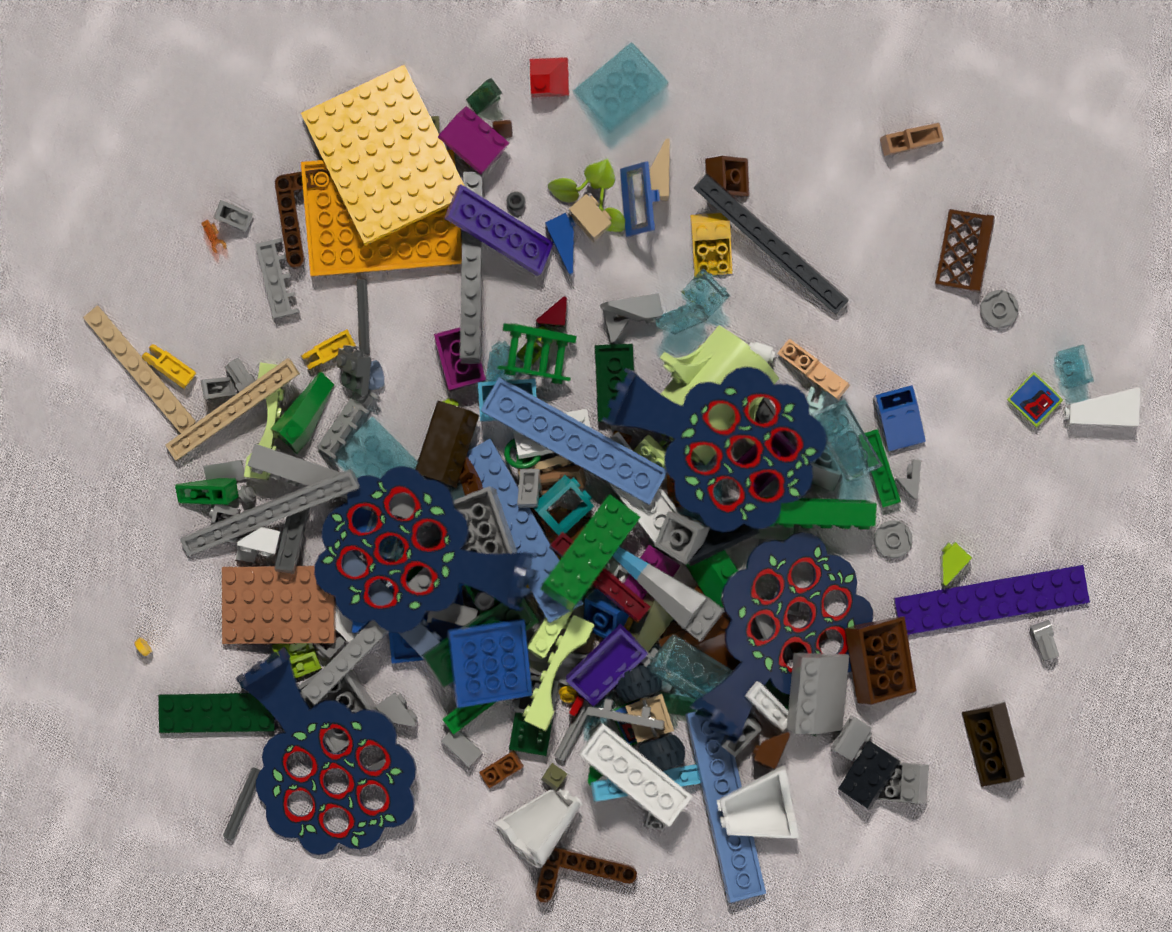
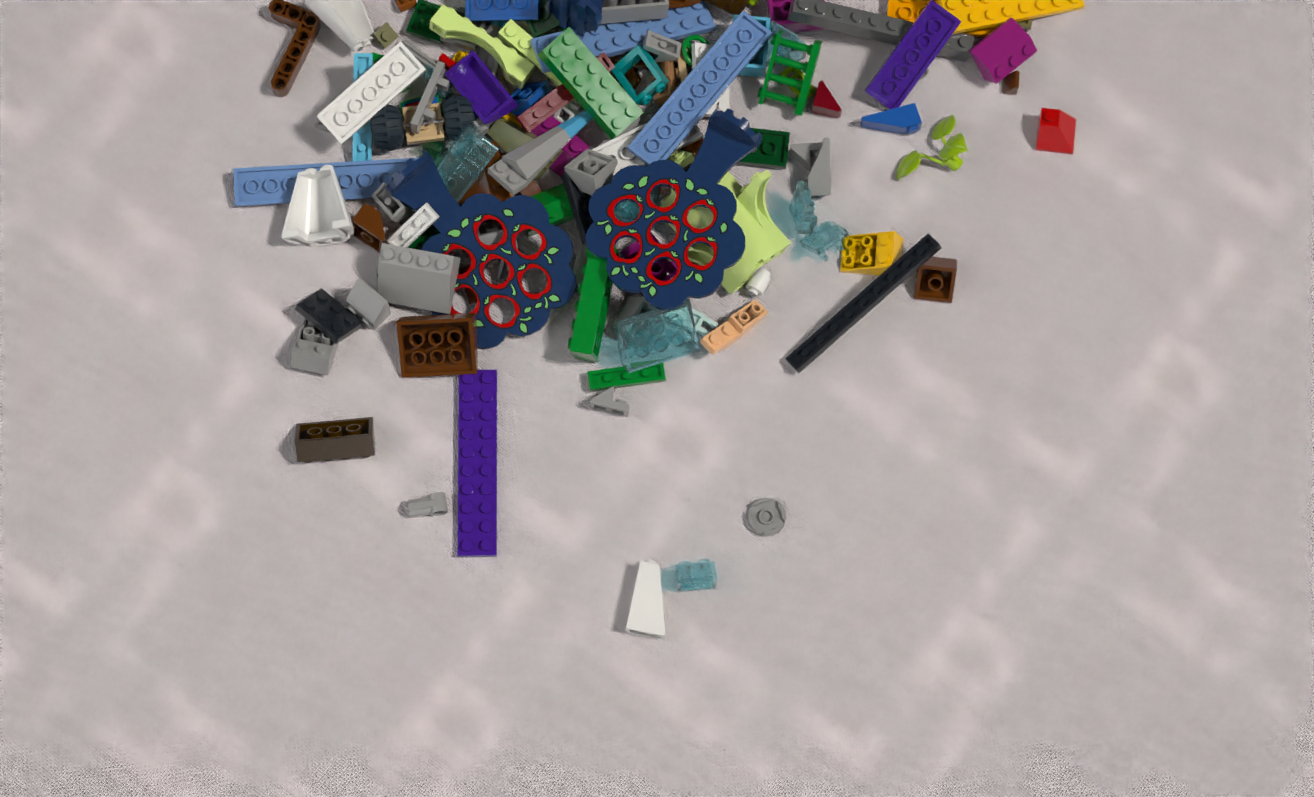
camera: 100 degrees right, 15 degrees down
(484, 96) = (1044, 72): clear green slope -> none
(511, 196) = (939, 80): dark grey plate -> none
(590, 217) = (913, 140): tan slope -> none
(621, 87) = (1035, 196): clear light blue slope -> none
(638, 199) = (925, 185): piece -> none
(660, 171) = (946, 212): tan slope -> none
(893, 539) = (554, 379): light grey tile -> none
(900, 418) = (673, 401): blue slope -> none
(911, 139) = (949, 458): medium nougat slope -> none
(952, 561) = (522, 429): lime slope -> none
(981, 253) = (828, 508): reddish brown fence -> none
(1035, 399) = (669, 535): slope -> none

